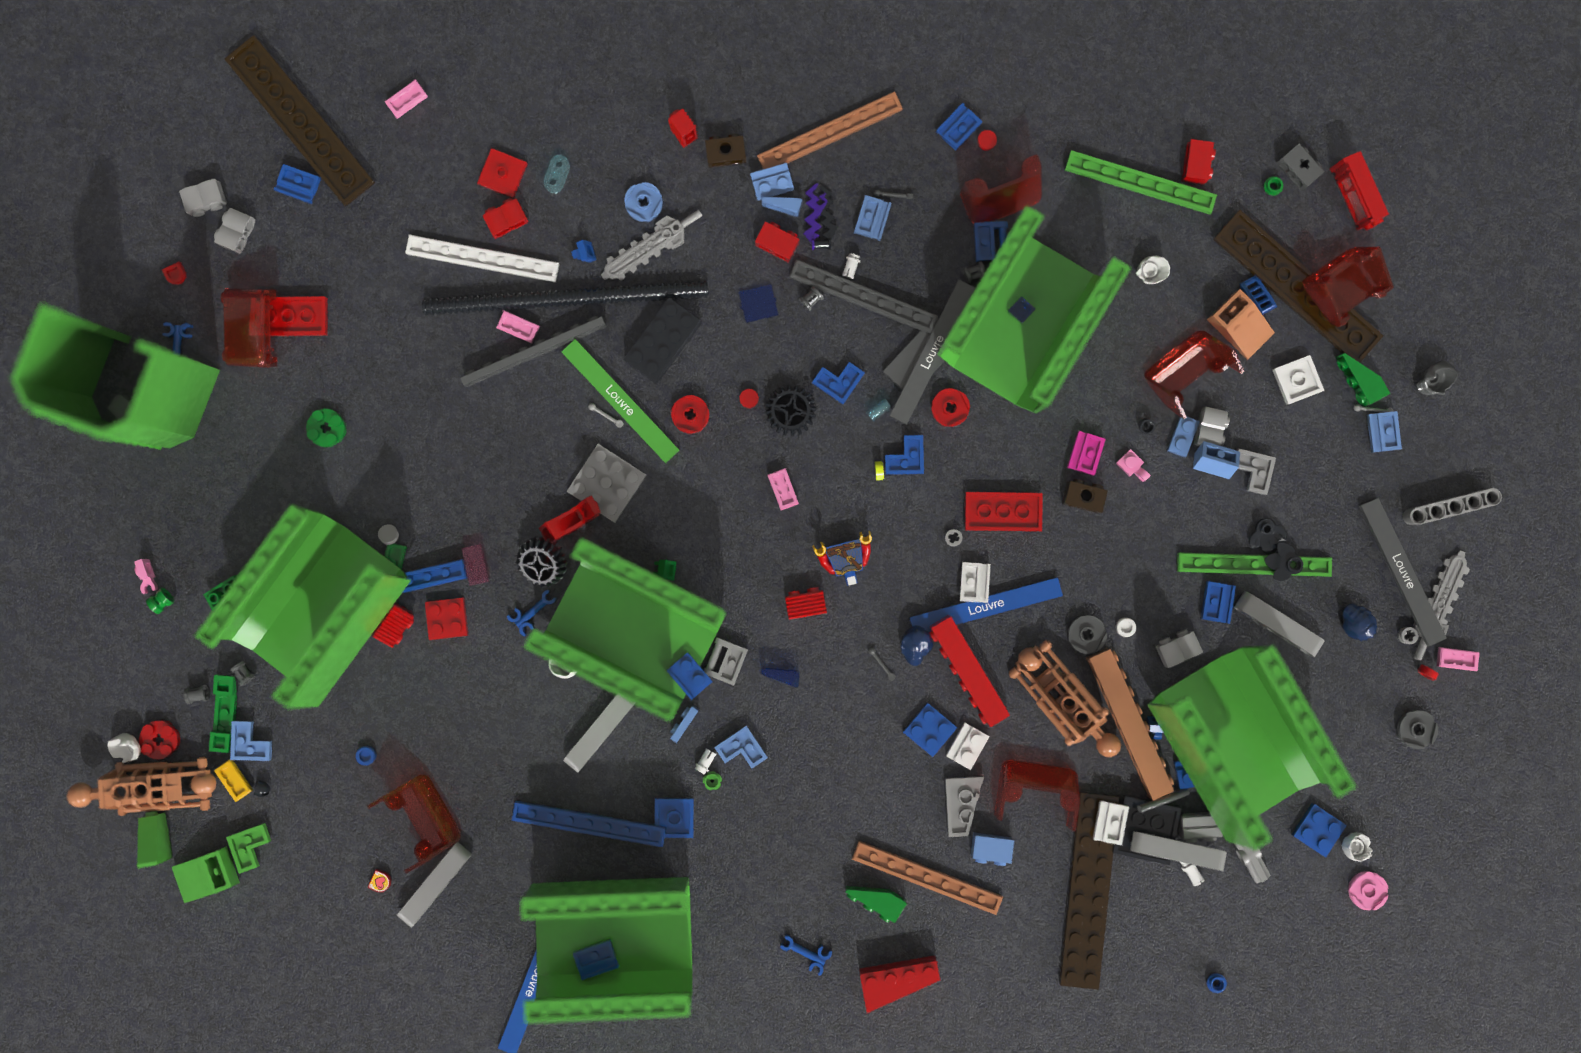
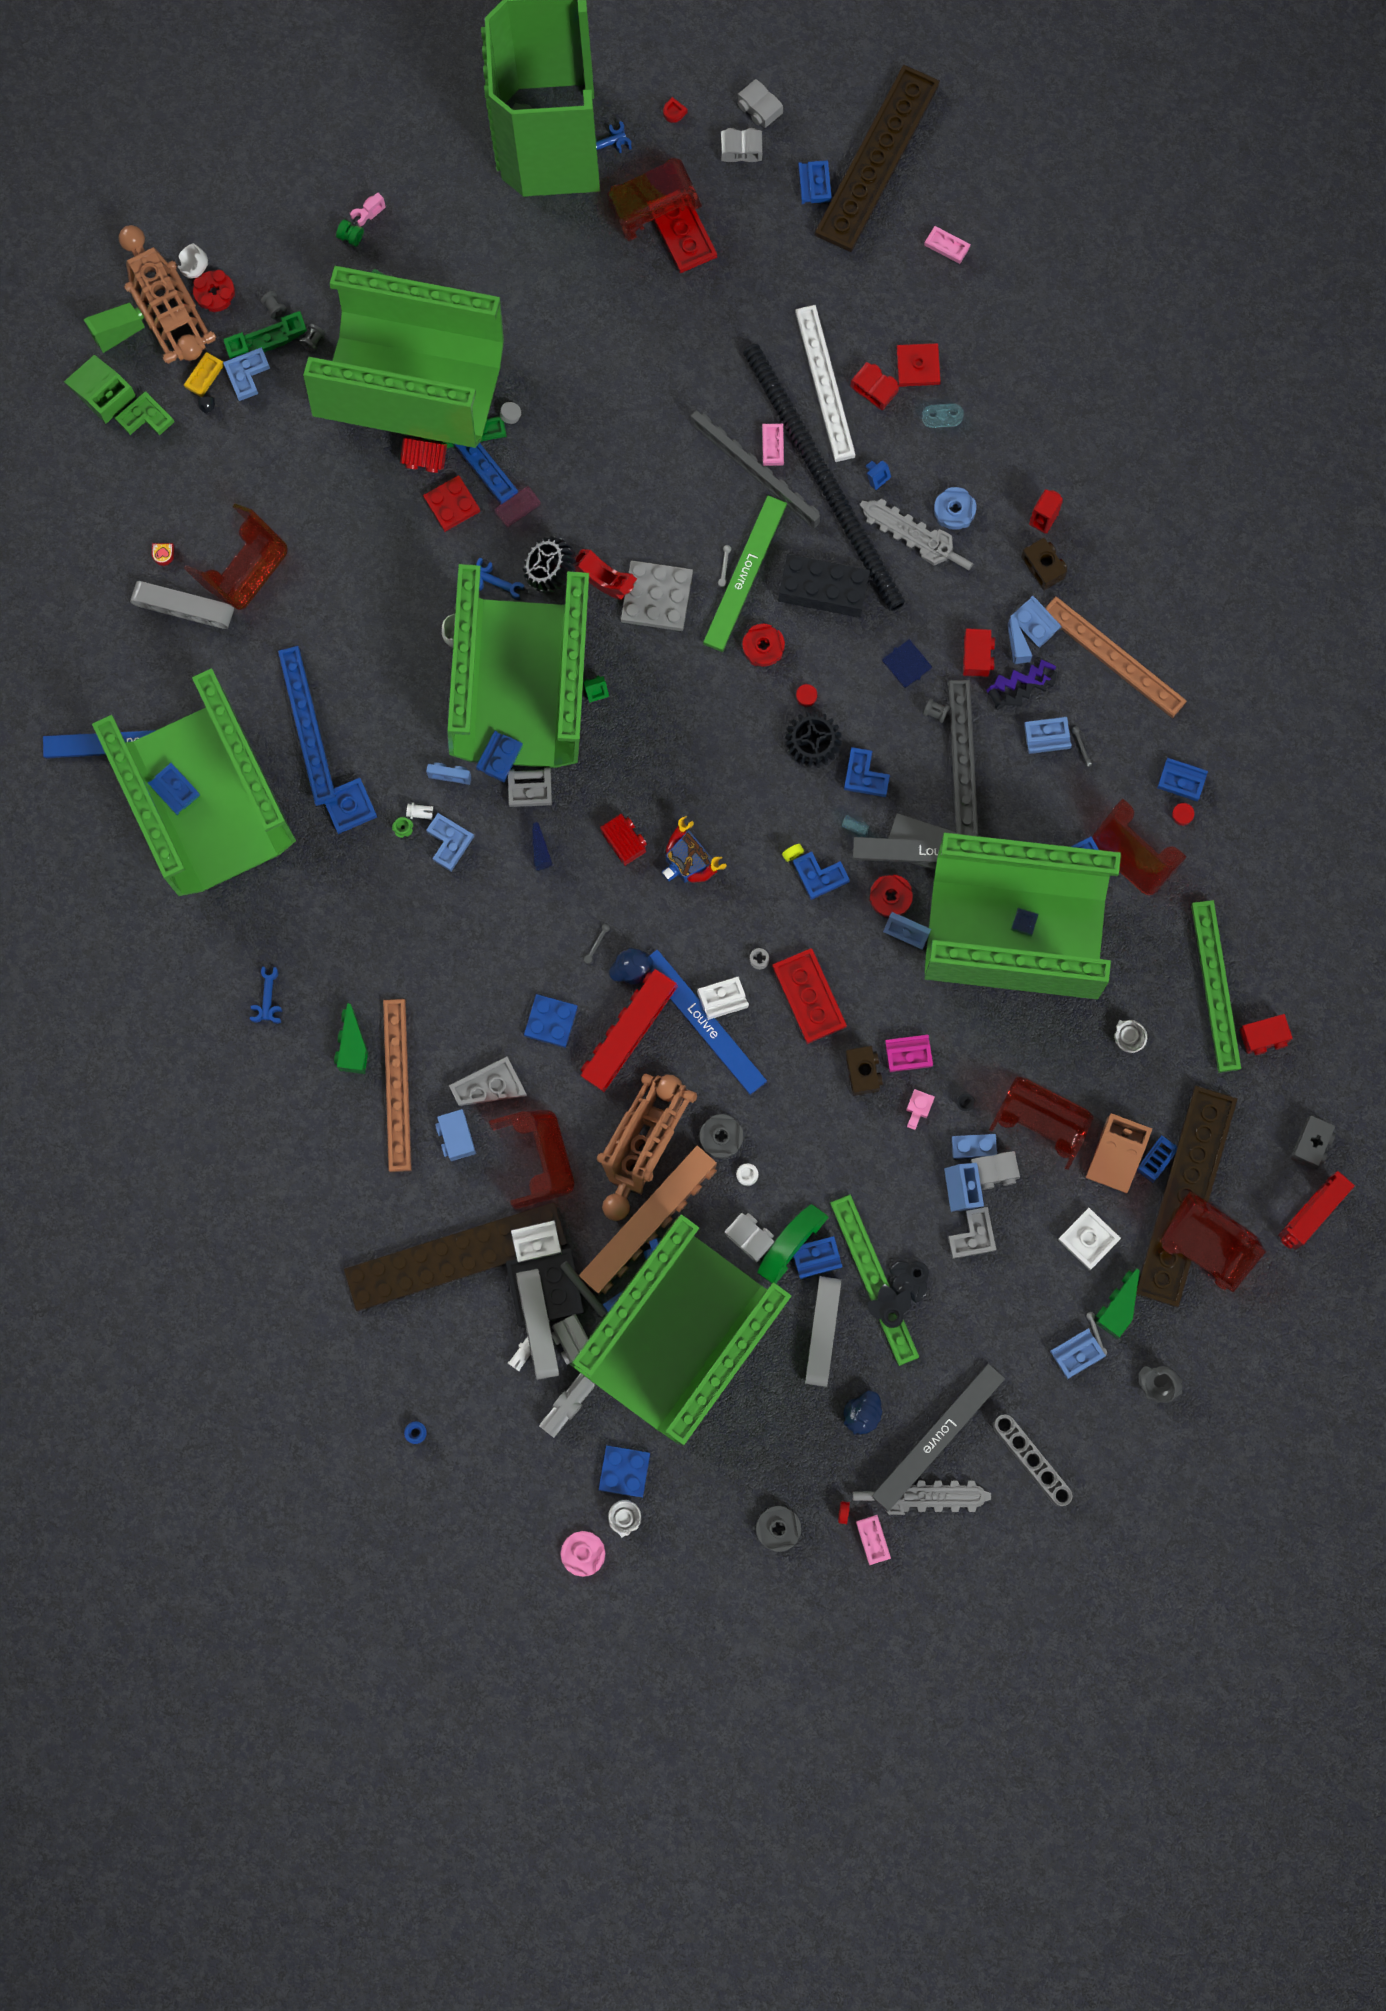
camera: 70 degrees right, 10 degrees down
(315, 430) = (591, 300): green plate -> none
(366, 755) = (282, 486): blue tile -> none
(598, 732) = (403, 695): light grey beam -> none
(783, 489) = (730, 767): bright pink plate -> none
(851, 265) = (988, 735): white pin -> none
(895, 980) = (273, 1090): red wedge -> none
(967, 746) = (551, 1066): white plate -> none
(985, 408) = (907, 930): none -> medium blue plate
(1197, 616) = (790, 1241): none -> green slope
(1278, 184) = (1280, 1118): green plate -> none
(1402, 632) = (874, 1469): light grey bush -> none

